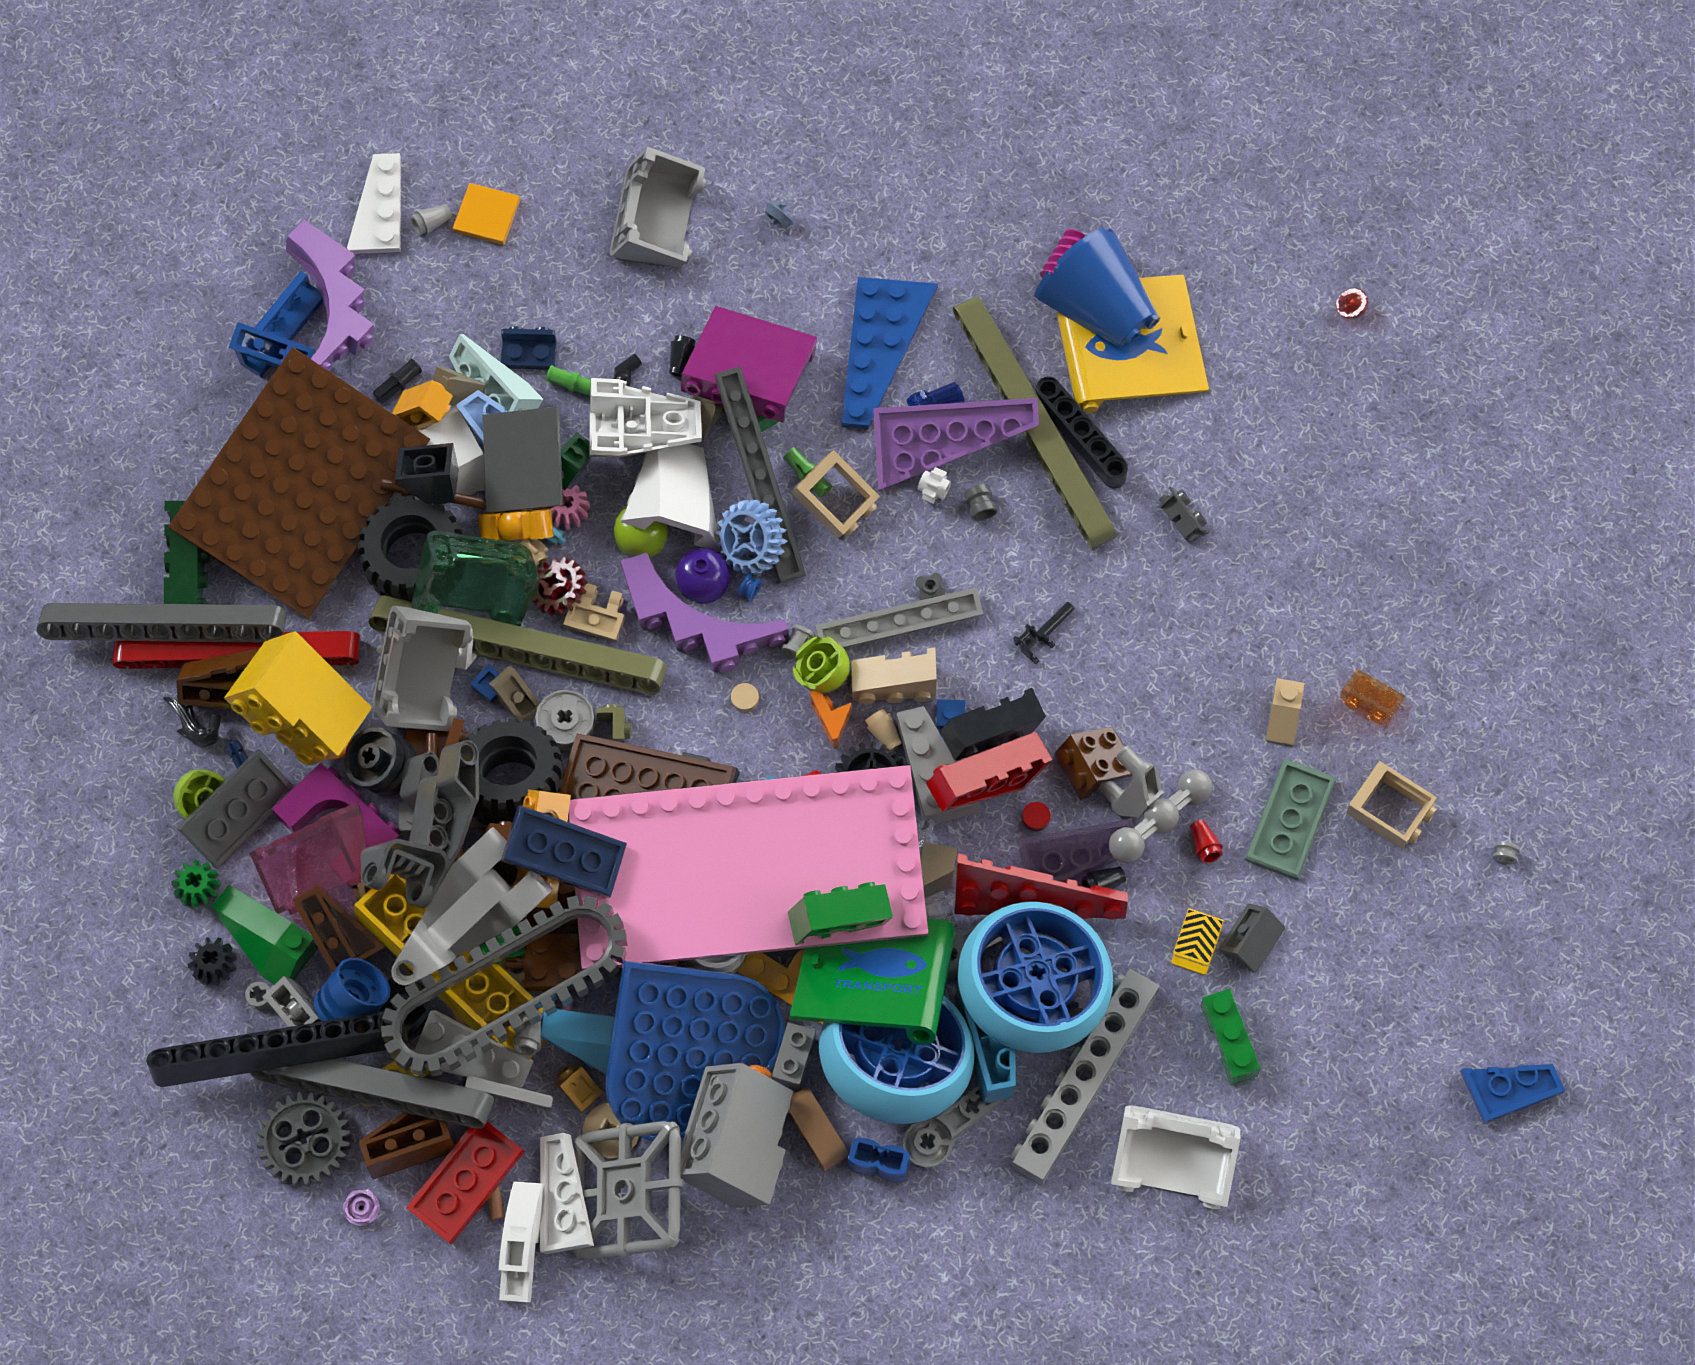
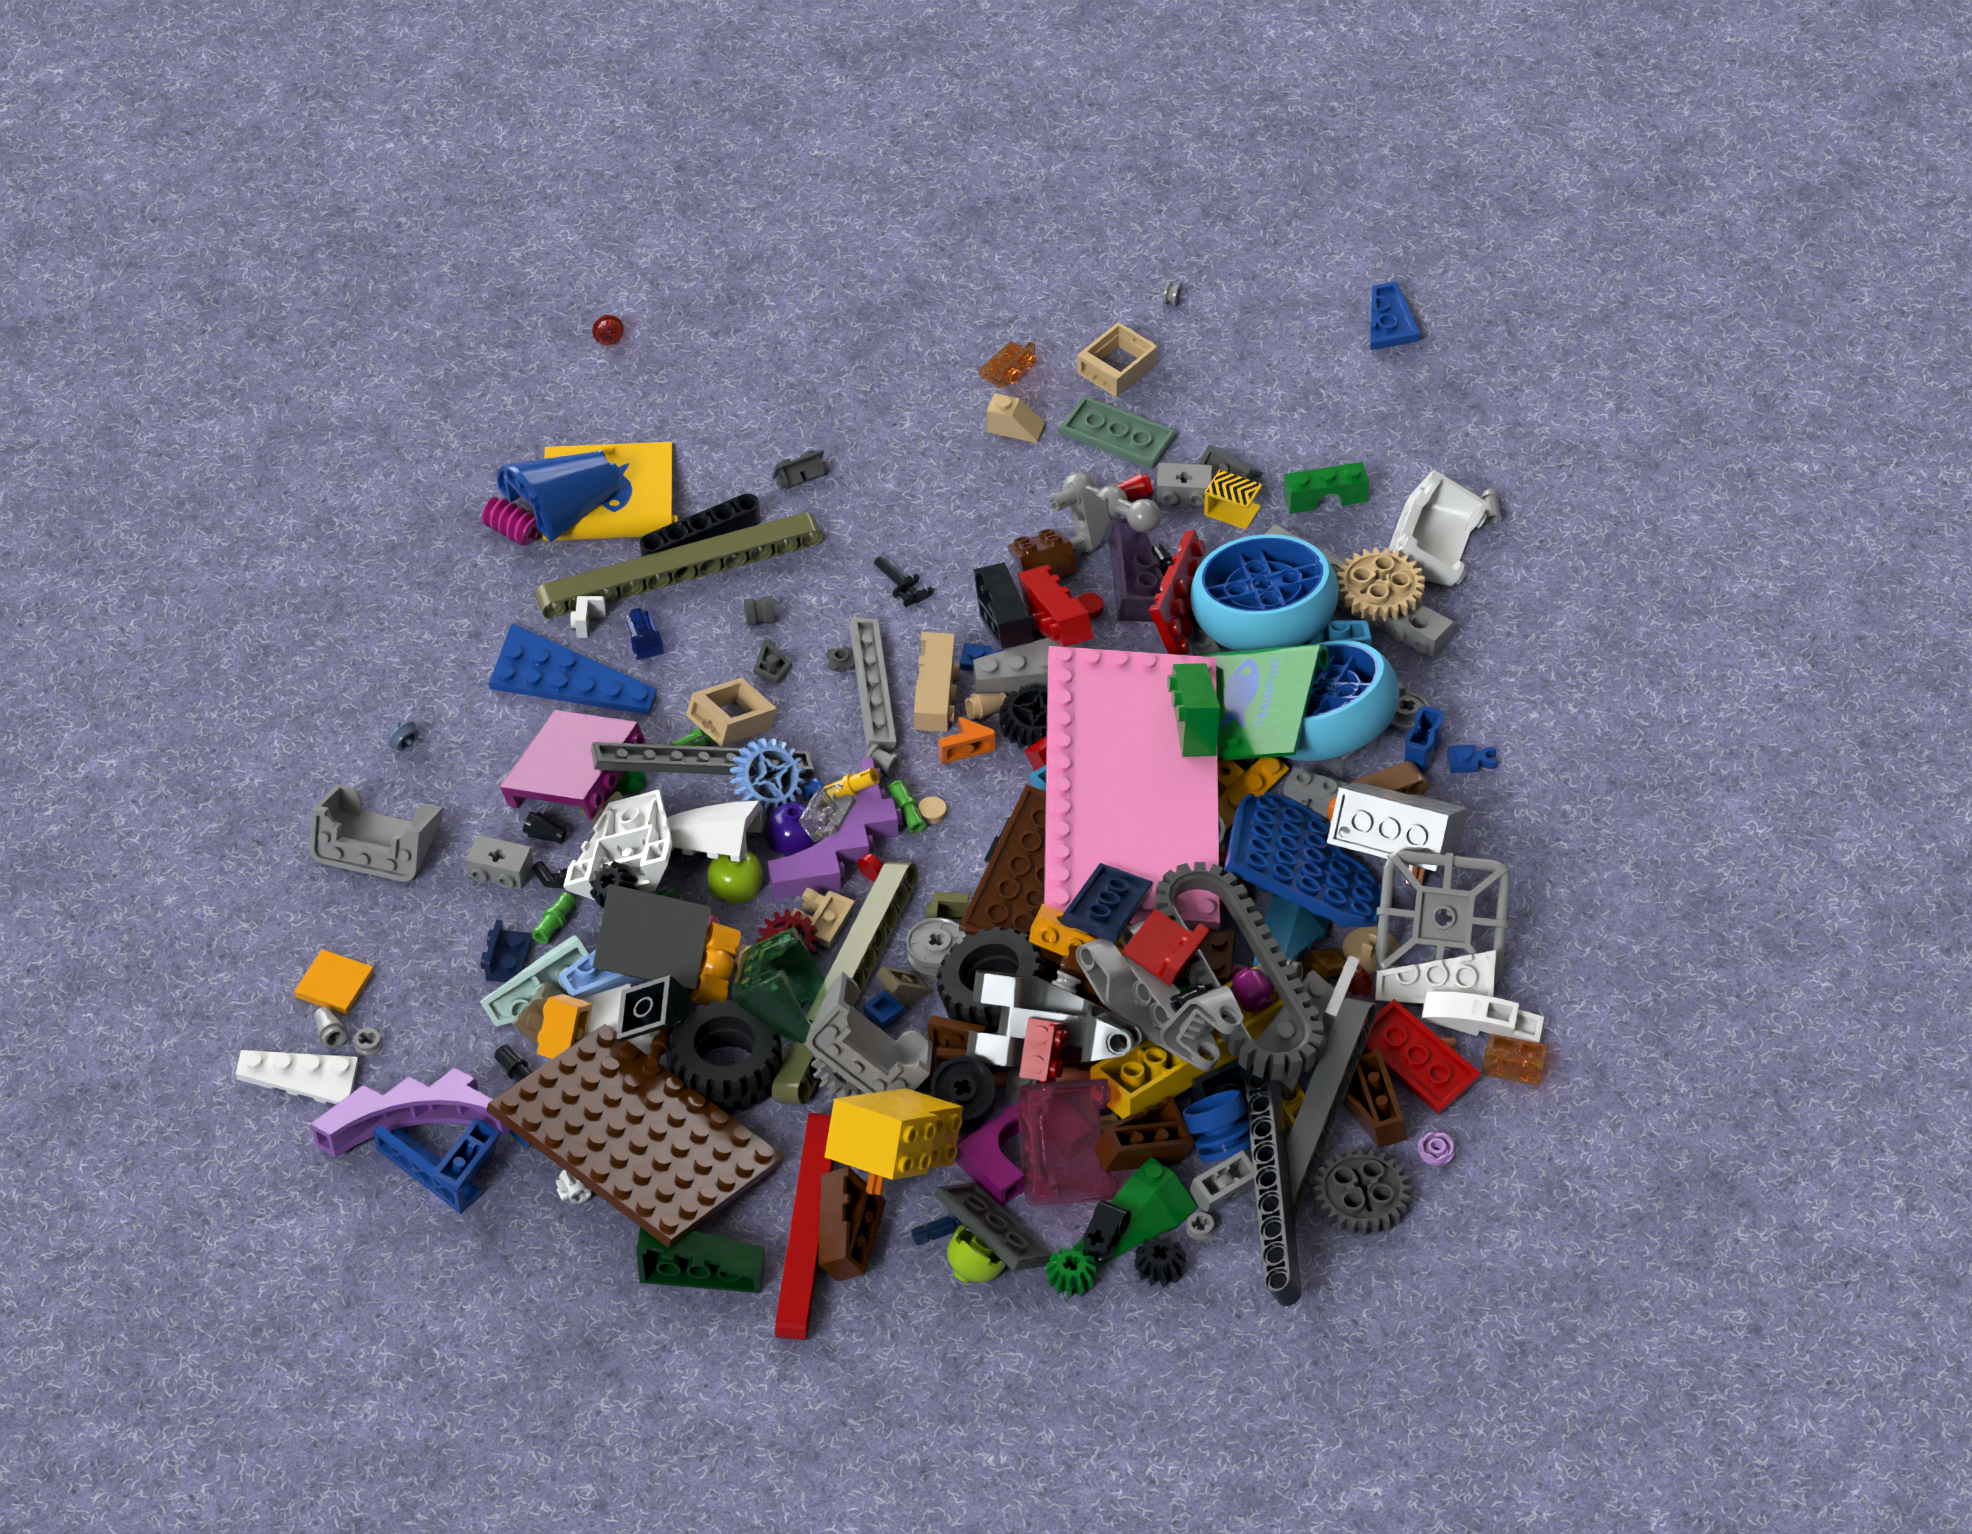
camera: 85 degrees left, 20 degrees down
(161, 622) = (771, 1275): dark grey beam -> none
(190, 726) = (890, 1272): black piece -> none
(231, 905) = (1106, 1226): none -> black piece
(392, 818) = (1043, 1050): none -> bracket
(418, 245) = (364, 1048): none -> light grey bush
(450, 939) = (1193, 991): none -> black pin
(466, 824) = (1066, 982): none -> light grey bush
(478, 1278) = (1514, 1059): none -> clear orange bracket
(495, 1004) = (1252, 990): none -> magenta head
(499, 906) = (1164, 946): none -> red bracket
(560, 1119) = (1361, 982): none -> clear red hat
(583, 418) = (613, 874): none -> black gear
(632, 337) = (499, 862): none -> light grey brick
(661, 648) = (870, 866): none -> red tile
(708, 595) = (826, 812): none -> clear hinge
(743, 673) = (908, 806): none -> bright green pin
(745, 613) = (854, 783): none -> yellow pin
(821, 665) = (914, 733): lime cylinder -> none
(871, 1209) = (1467, 760): none -> blue plate
(917, 524) = (771, 663): none -> dark grey piece
(931, 435) = (683, 627): medium lavender wing -> none
(934, 485) = (734, 641): white gear -> none
(954, 343) = (587, 608): none -> white bracket
(1094, 1081) = (1380, 584): none -> tan gear
(1218, 875) = (1182, 483): none -> light grey brick
(1235, 1215) = (1493, 506): none -> light grey pin

